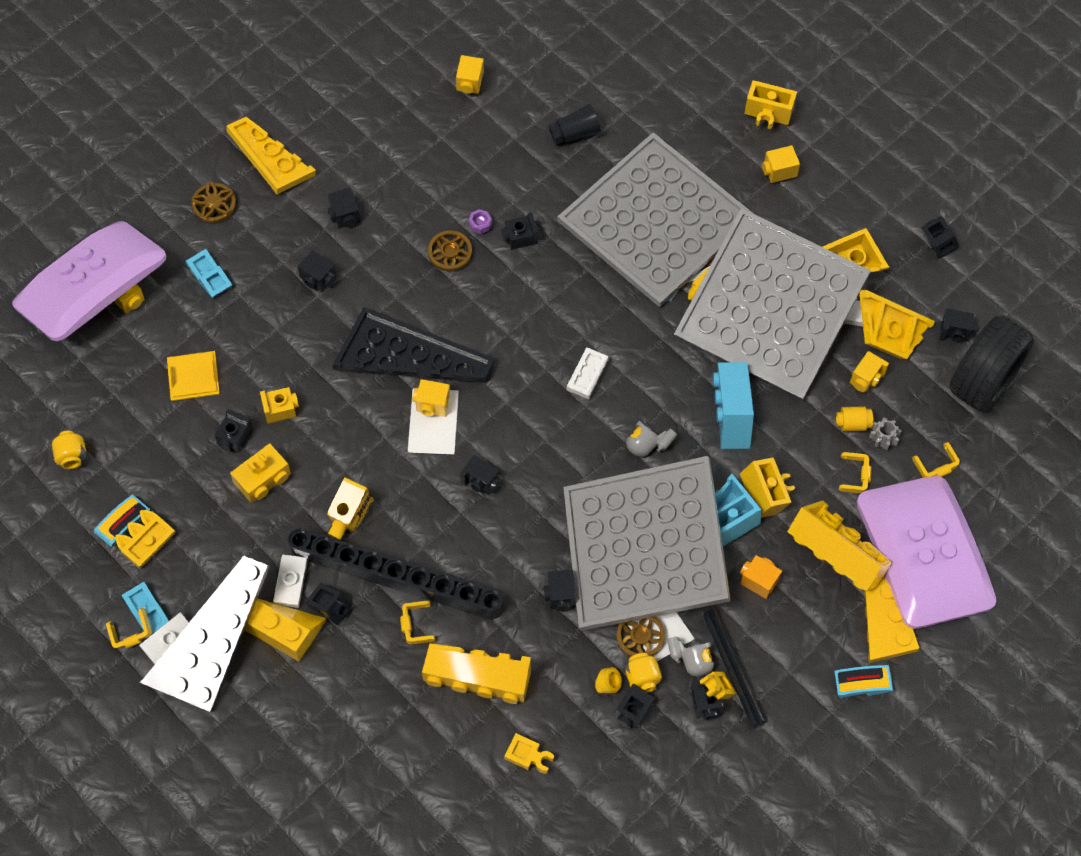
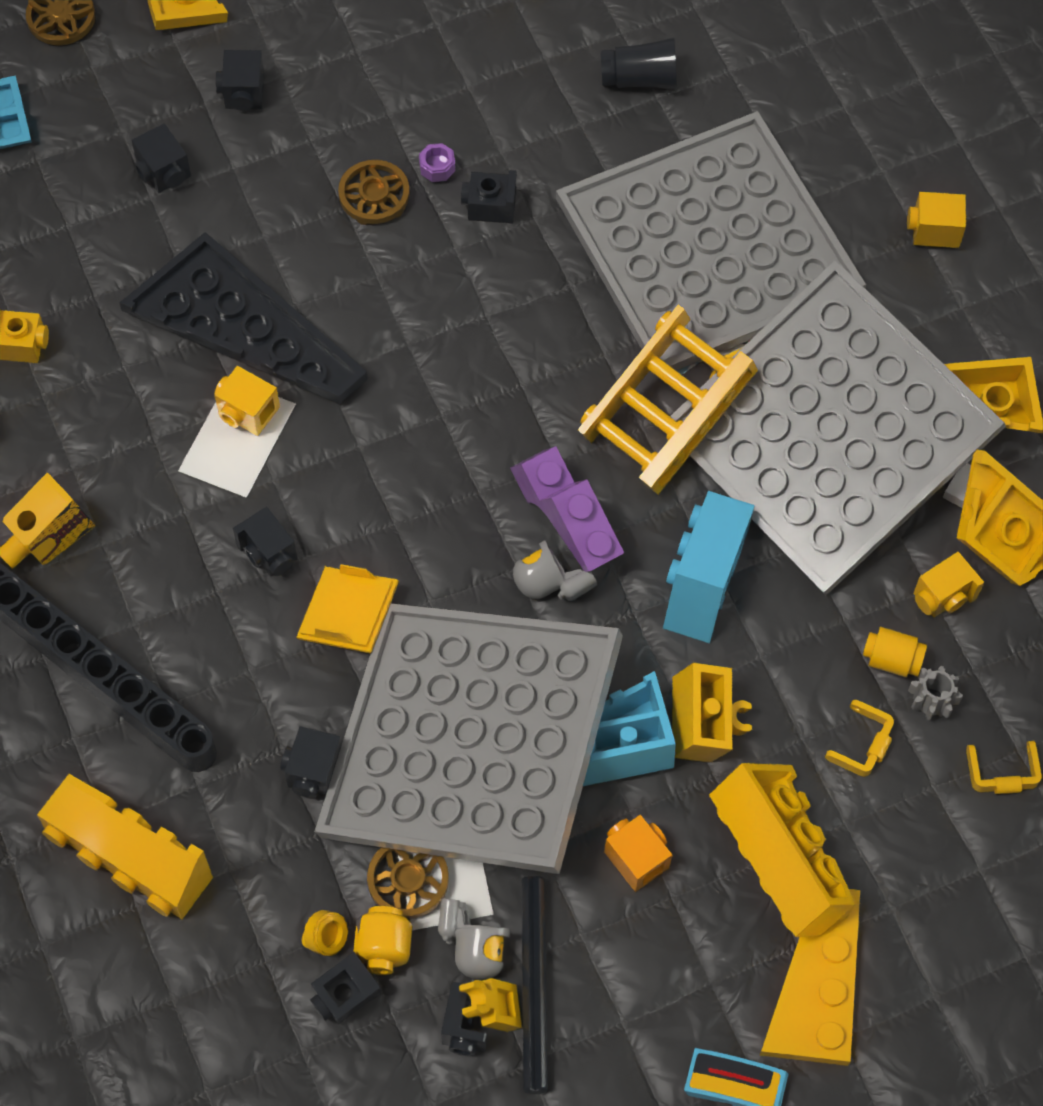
camera: 20 degrees right, 0 degrees up
(406, 623) = (57, 729): yellow piece -> none
(525, 751) = (145, 1000): yellow plate -> none
(541, 497) = (348, 608): none -> yellow piece
(587, 373) = (501, 441): white plate -> none
(646, 397) = (569, 507): none -> medium lavender arch
(689, 335) = (706, 404): none -> yellow fence
(770, 103) = (958, 122): yellow brick -> none
(932, 552) = (932, 908): lavender wedge -> none

